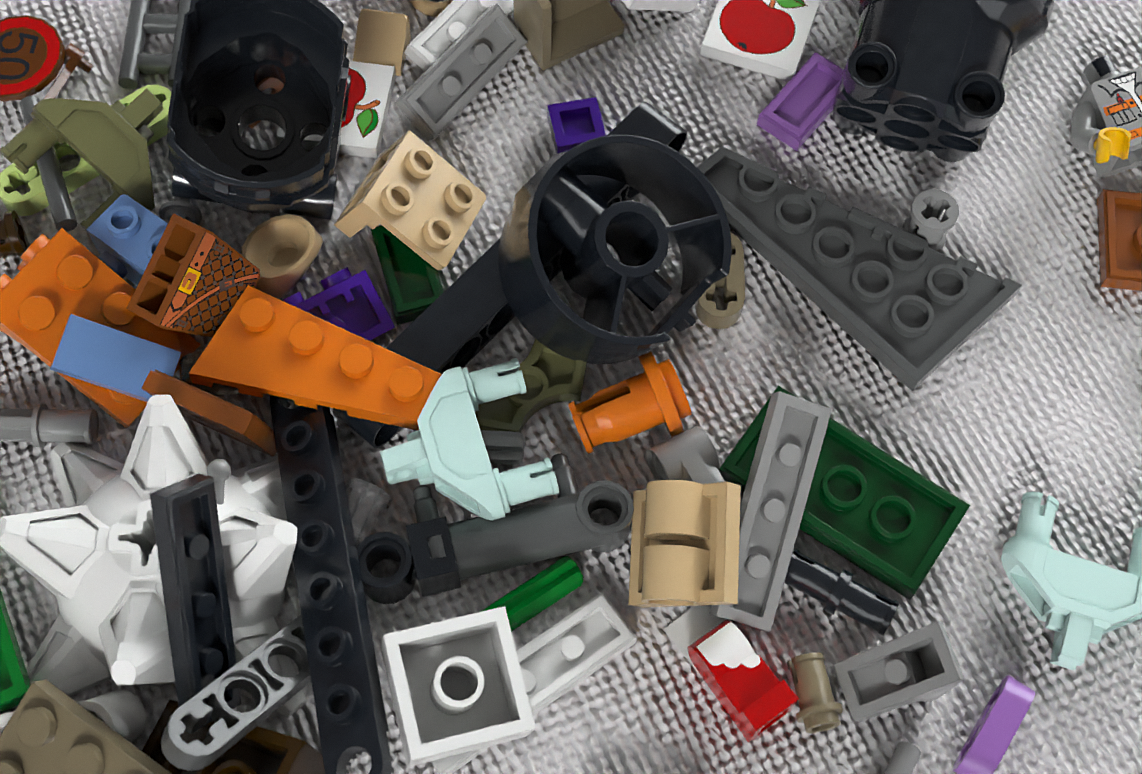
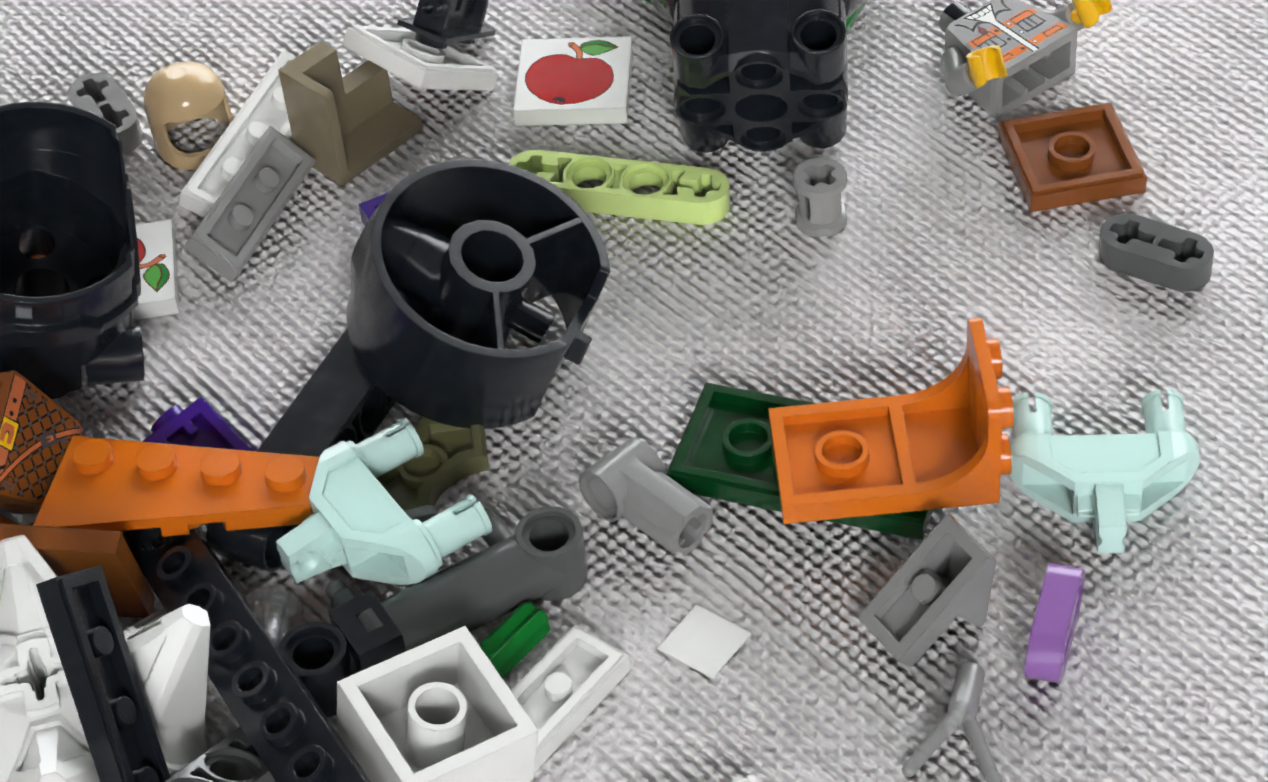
camera: 10 degrees left, 20 degrees down
(282, 251) = (105, 406): tan piece -> none
(382, 38) = (155, 194): tan slope -> none
(408, 277) = (244, 394): dark green tile -> none
(416, 200) = (239, 322): tan bracket -> none
(633, 405) = (556, 436): orange piece -> none
(685, 544) = (647, 538): tan plate -> none
(733, 293) = (618, 311): dark tan beam -> none
(741, 680) = (761, 659): red leg -> none
(770, 143) = (624, 176): none -> yellowish green beam
(774, 506) = (735, 487): light grey plate -> none
(802, 102) = (647, 128): medium lavender tile -> none
(814, 693) = (854, 660): dark tan pin -> none
(840, 592) = (837, 549): black pin -> none
(861, 271) = (767, 261): dark grey wing -> none
(919, 523) = (899, 450): none -> orange bracket

